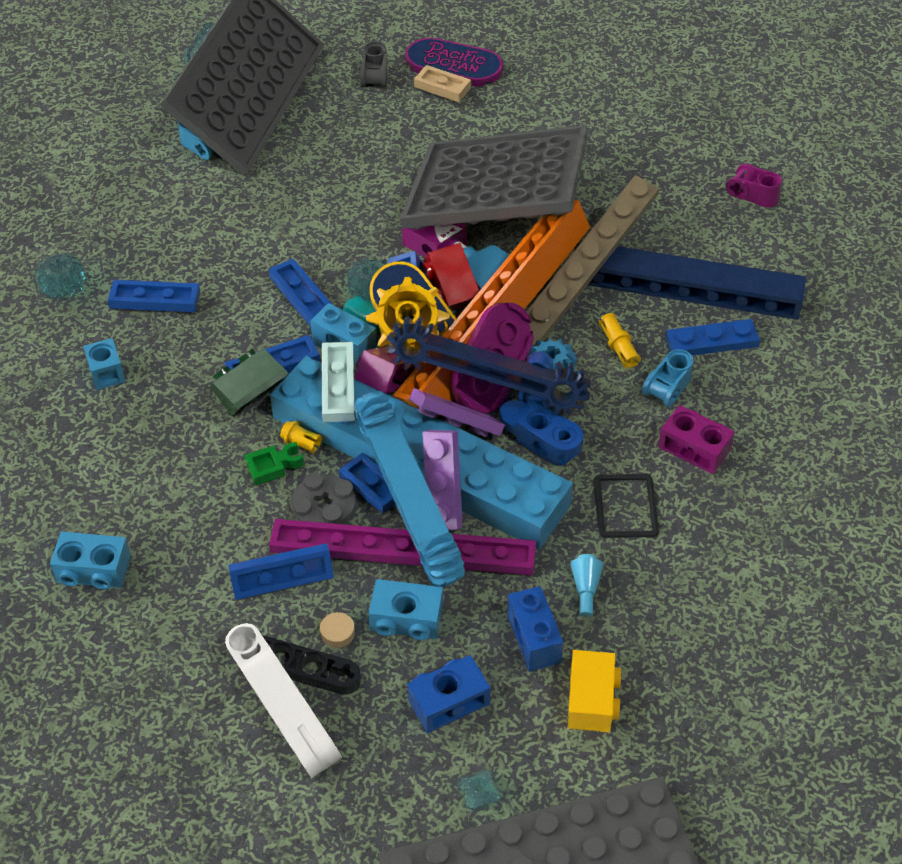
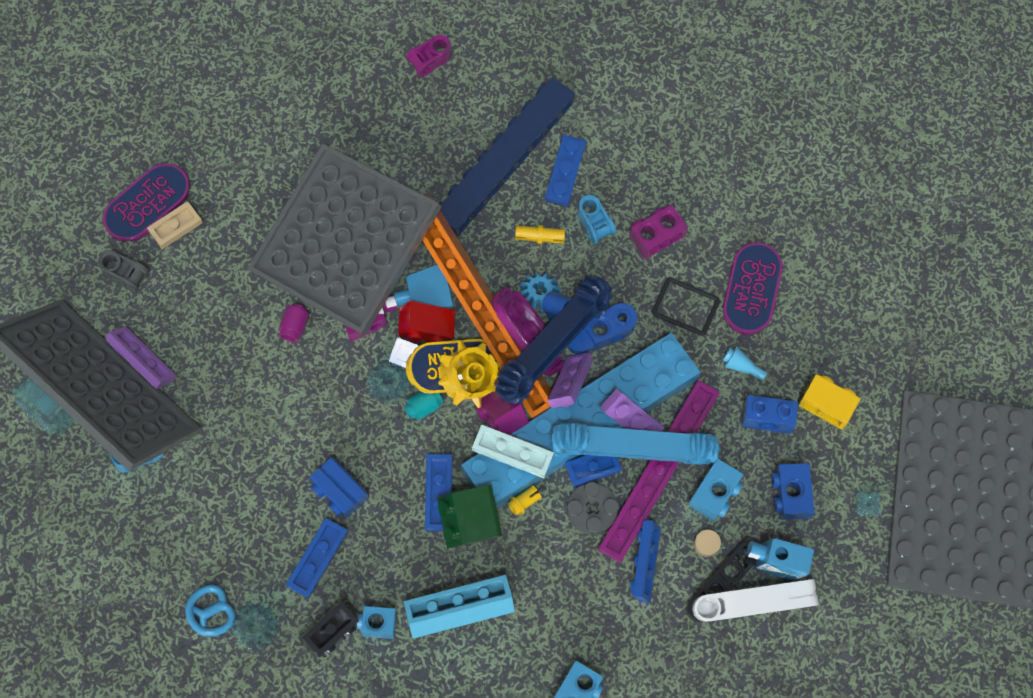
camera: 70 degrees left, 20 degrees up
(63, 229) = (209, 611): none -> dark azure piece
(75, 322) = (328, 629): none -> black brick
(148, 417) = (459, 606): none -> medium azure brick
(236, 283) = (338, 488): none -> blue brick
(269, 464) = (540, 533): green plate -> none
(296, 107) = (140, 357): none -> medium lavender plate
(298, 289) = (373, 441): blue plate -> none
(339, 326) = (441, 428): dark azure brick -> none
(345, 698) = (781, 558): none -> dark azure torso
(393, 191) = (293, 322): none -> magenta brick
(590, 256) = (461, 212): dark tan plate -> none
(692, 561) = (752, 288): none -> tile

